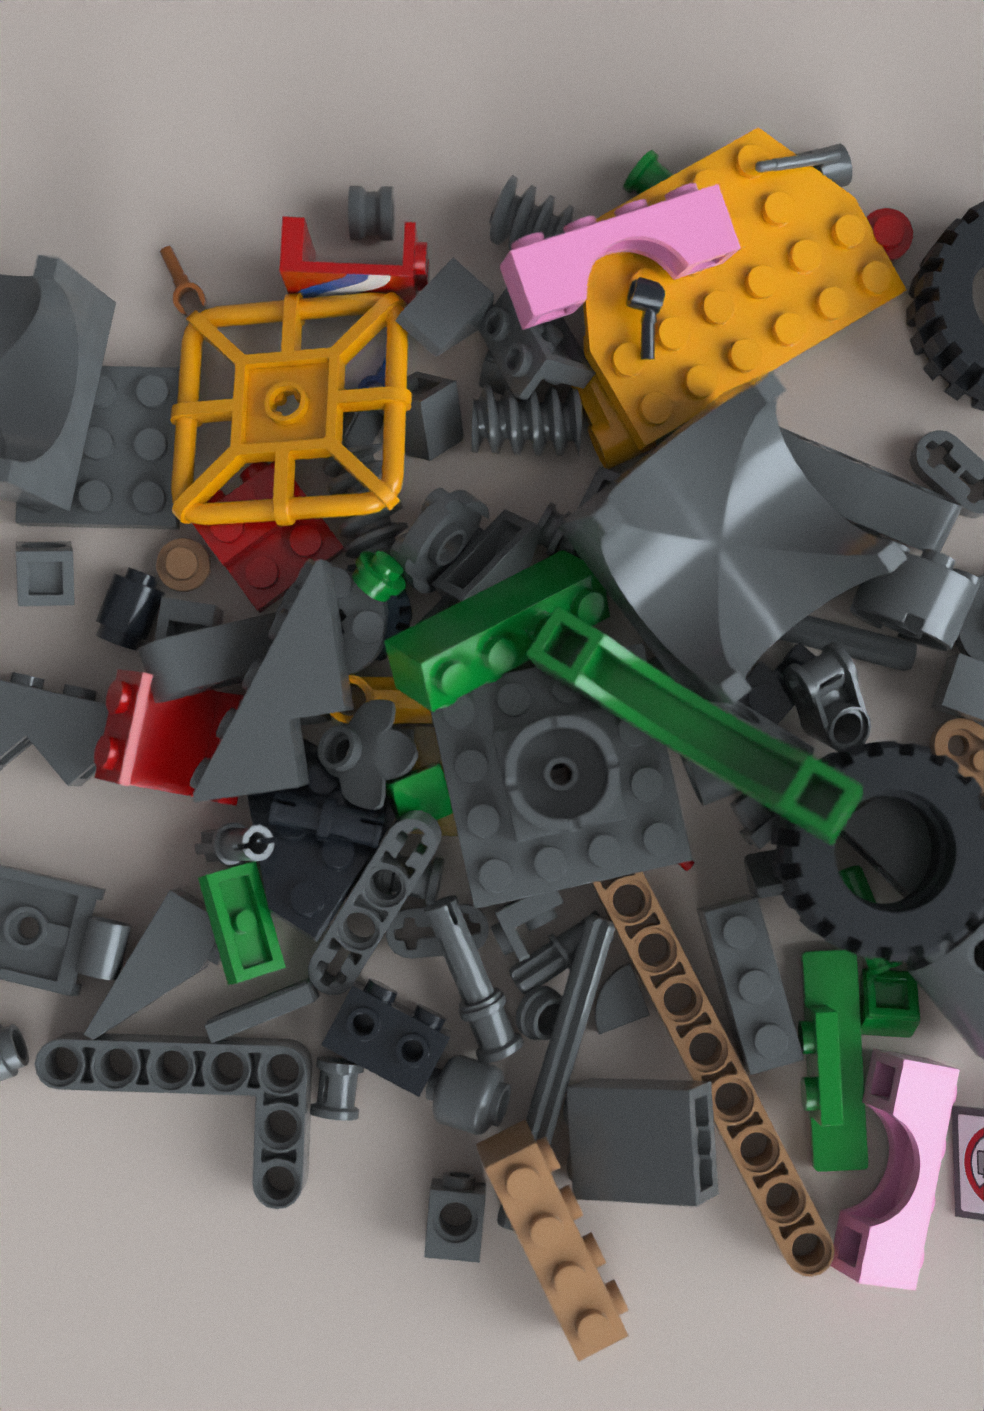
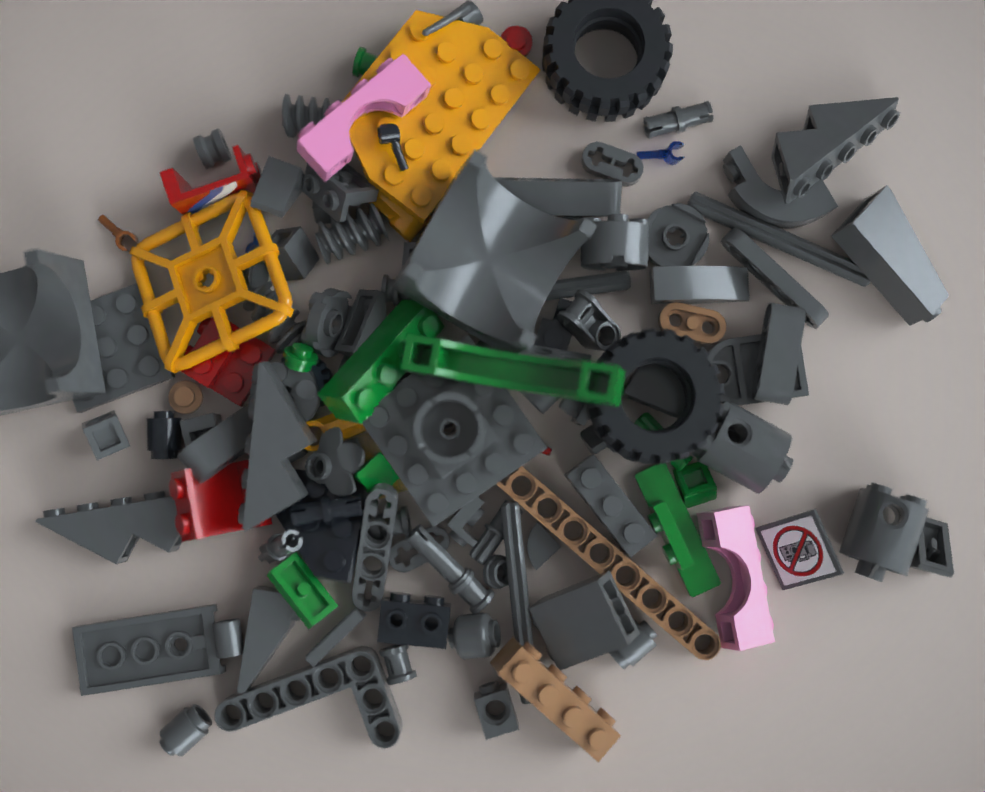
camera: 25 degrees left, 0 degrees up
(706, 1216) = (637, 648): none -> dark grey brick

